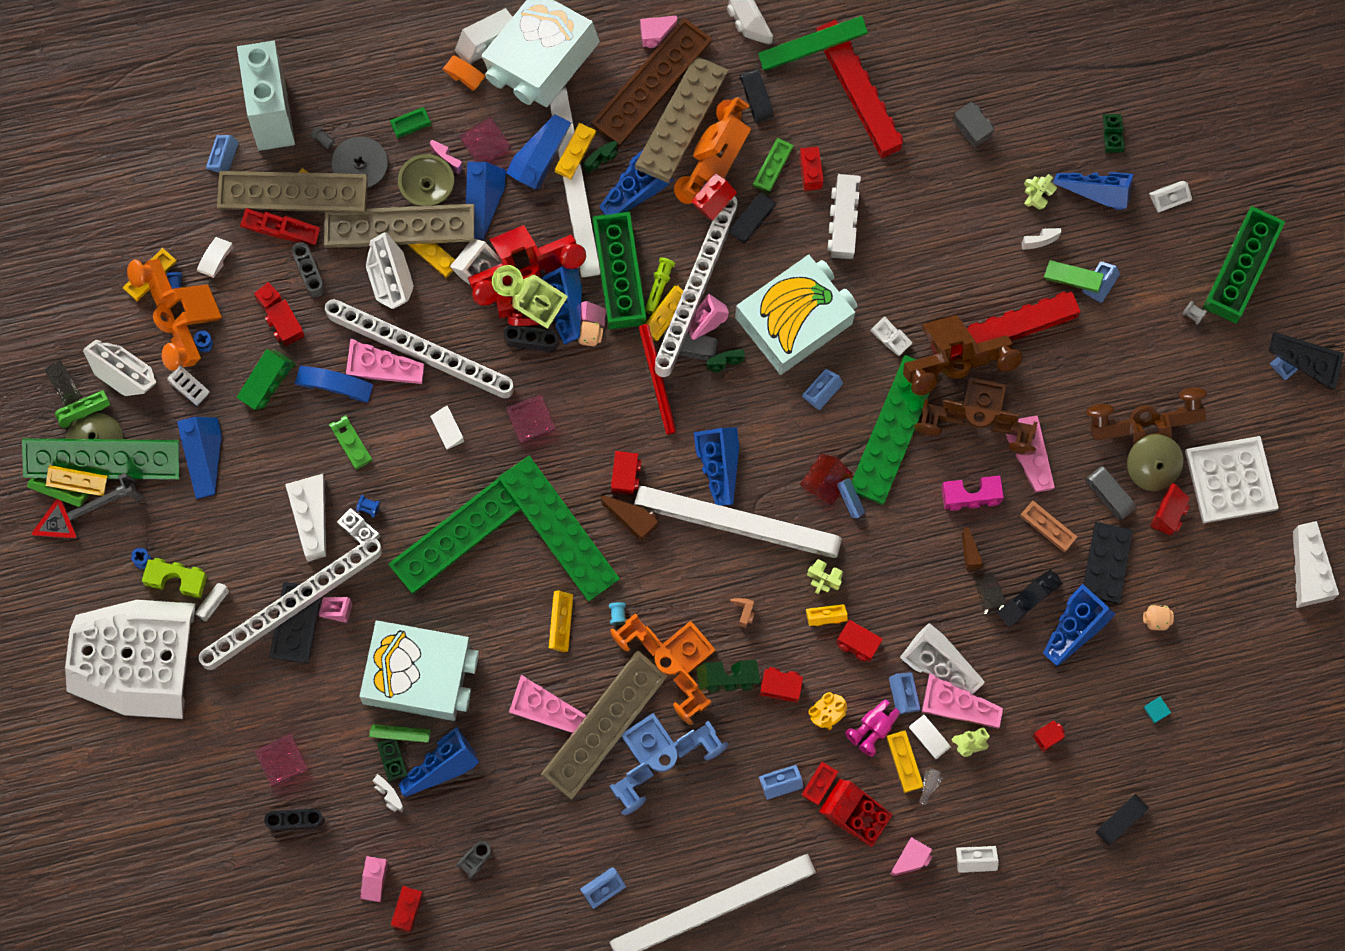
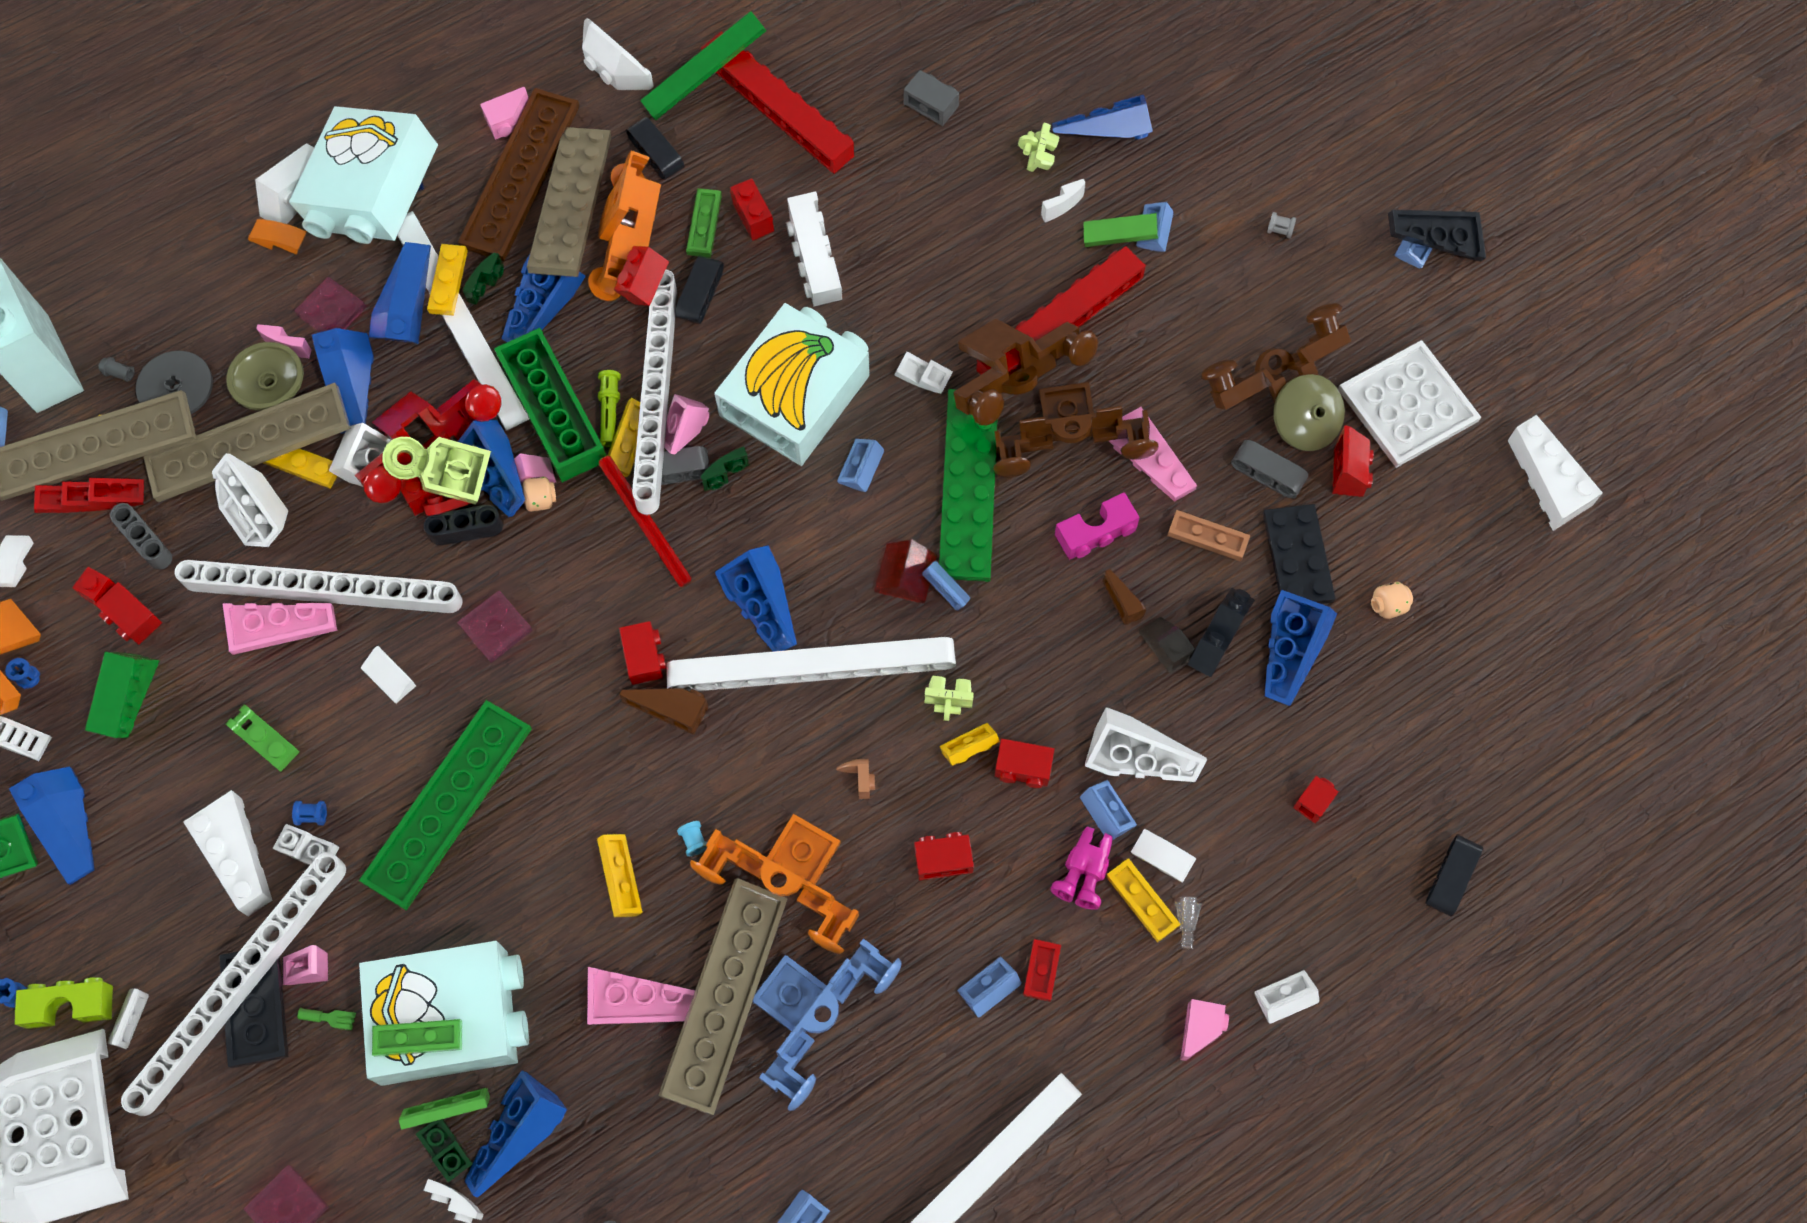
camera: 15 degrees left, 5 degrees down
(334, 382) = (218, 666): blue slope -> none
(346, 650) = (336, 1019): none -> bright green piece
(399, 682) = (417, 1037): none -> bright green tile
(410, 122) = (227, 316): green tile -> none
(558, 528) = (577, 754): green plate -> none
(713, 677) = (851, 878): dark green arch -> none
(828, 710) = (1018, 868): yellow plate -> none
(855, 812) = (1104, 991): red slope -> none
(958, 704) = (1179, 800): bright pink wing -> none
(971, 742) = (1220, 842): yellowish green hips -> none
(1113, 133) = (1100, 57): dark green slope -> none
(1157, 710) = (1437, 717): teal tile -> none
(1171, 196) = (1198, 105): white slope -> none
(1243, 264) = (1318, 151): green brick -> none

